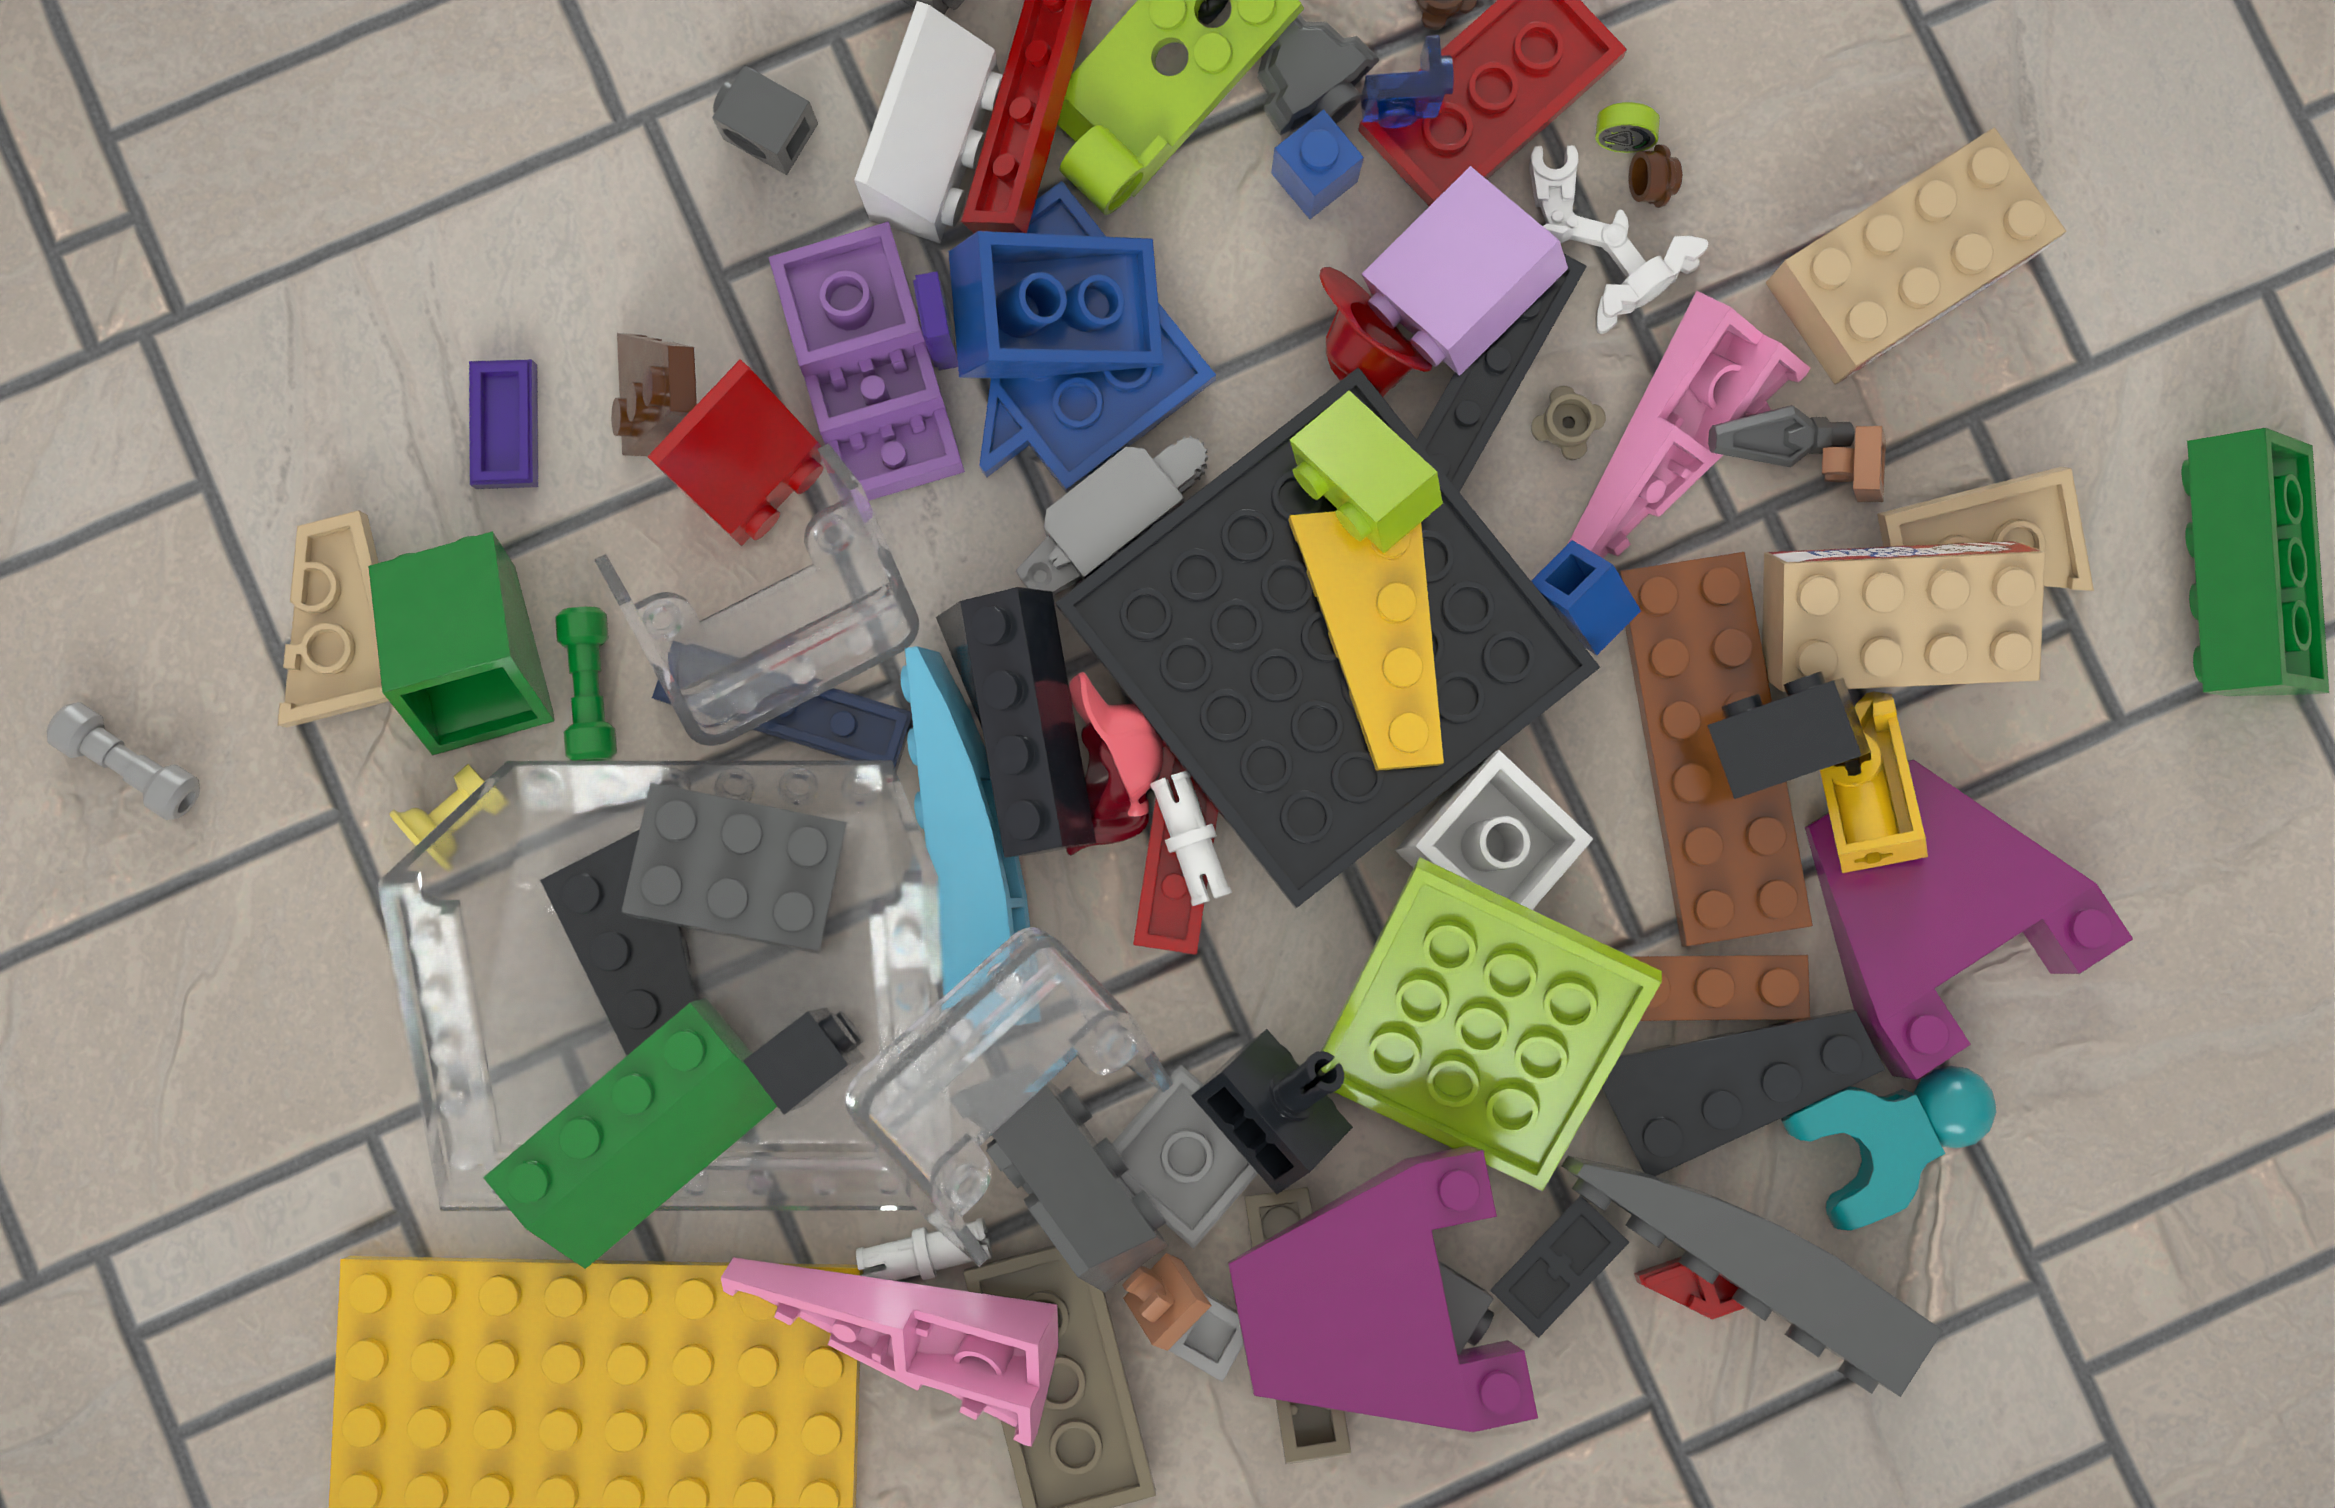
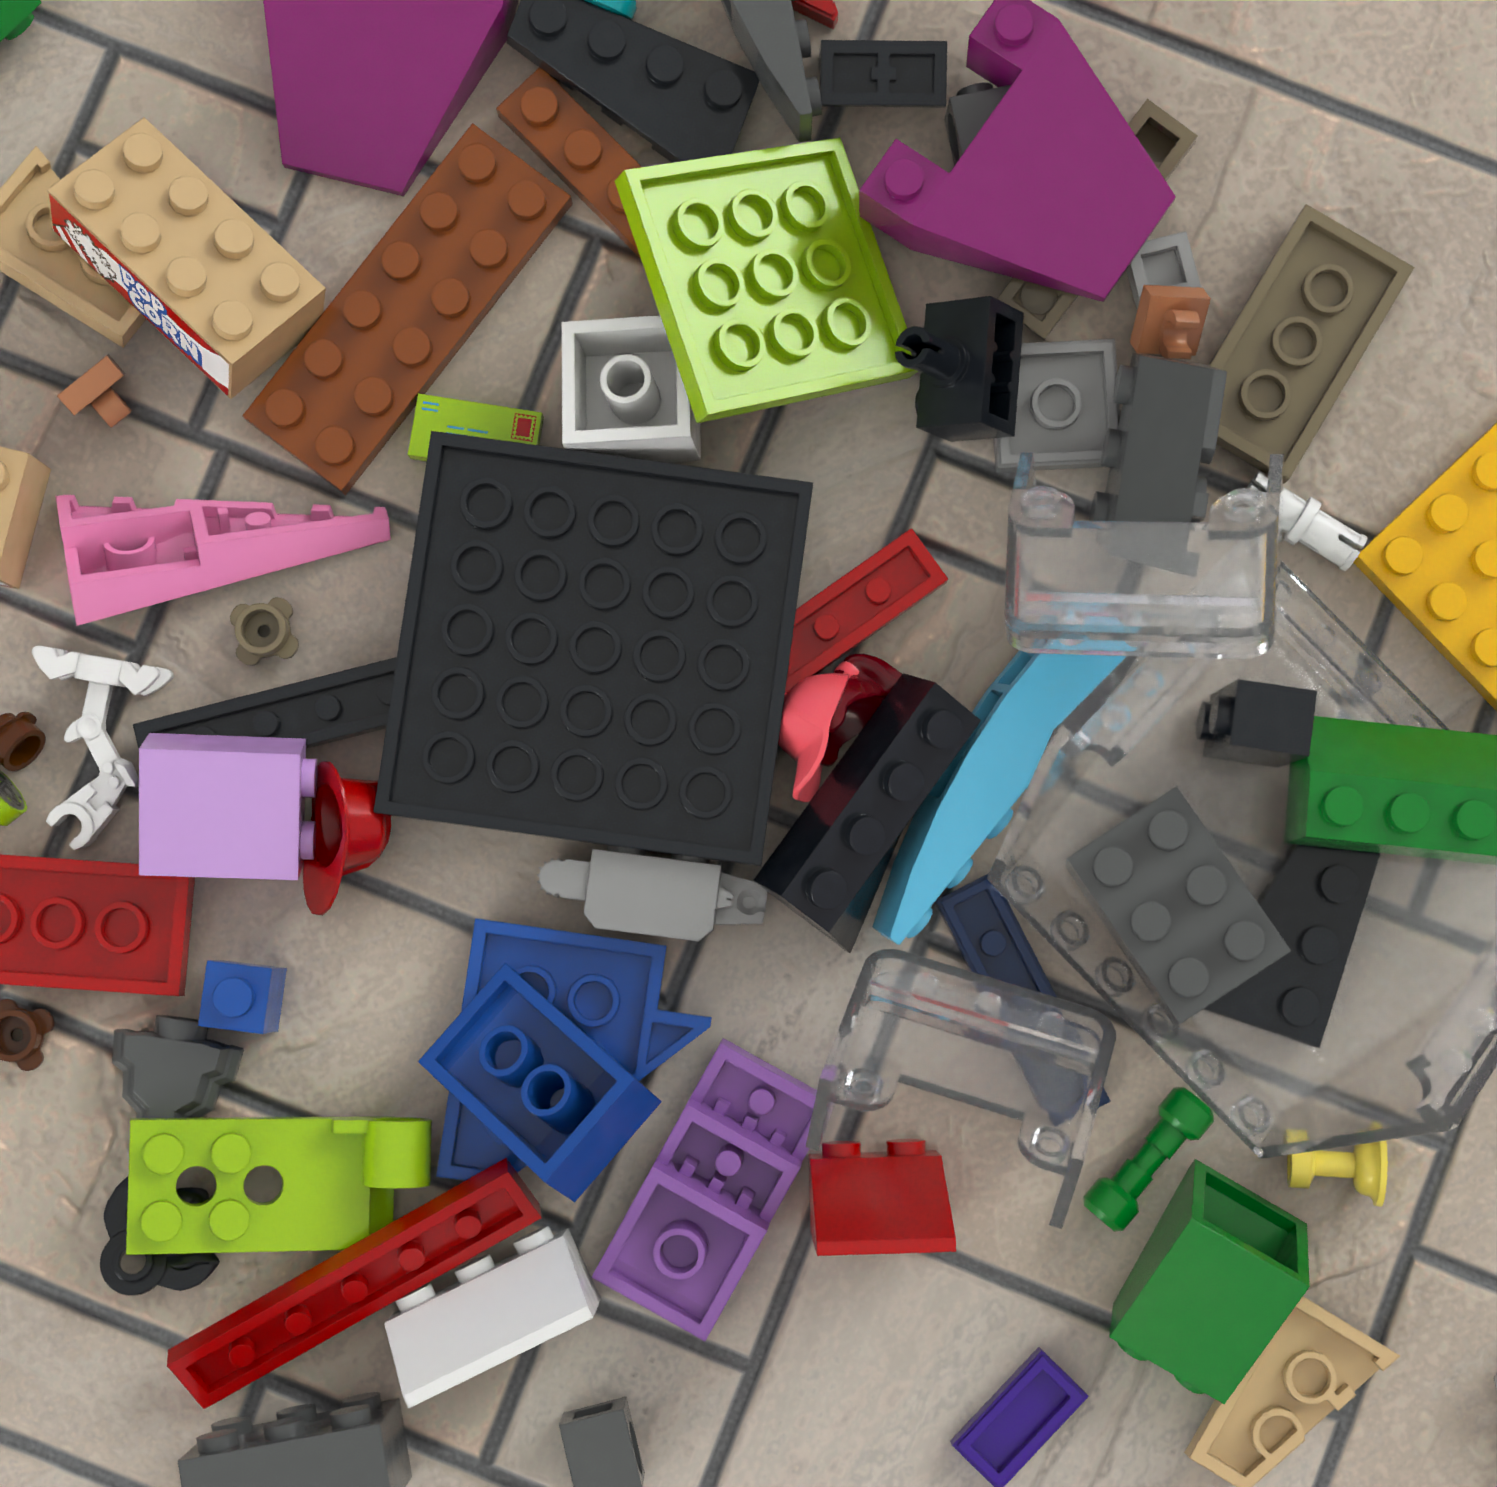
camera: 135 degrees left, 0 degrees up
(654, 391) = (888, 1320): reddish brown wing -> none
(935, 320) = (635, 1161): dark purple tile -> none
(966, 1343) = (1344, 436): bright pink wedge -> none
(1190, 838) = (835, 606): white pin -> none
(1365, 473) = (454, 722): lime brick -> none
(1379, 634) = (542, 627): yellow wing -> none
(1407, 96) = (135, 976): clear blue bracket -> none
(1577, 712) = (470, 419): none -> lime tile
(1587, 595) = (386, 493): blue brick -> none
(1778, 436) = (131, 469): dark grey piece -> none
(1788, 736) = (356, 250): black brick -> none
(1877, 810) = (347, 144): yellow piece -> none

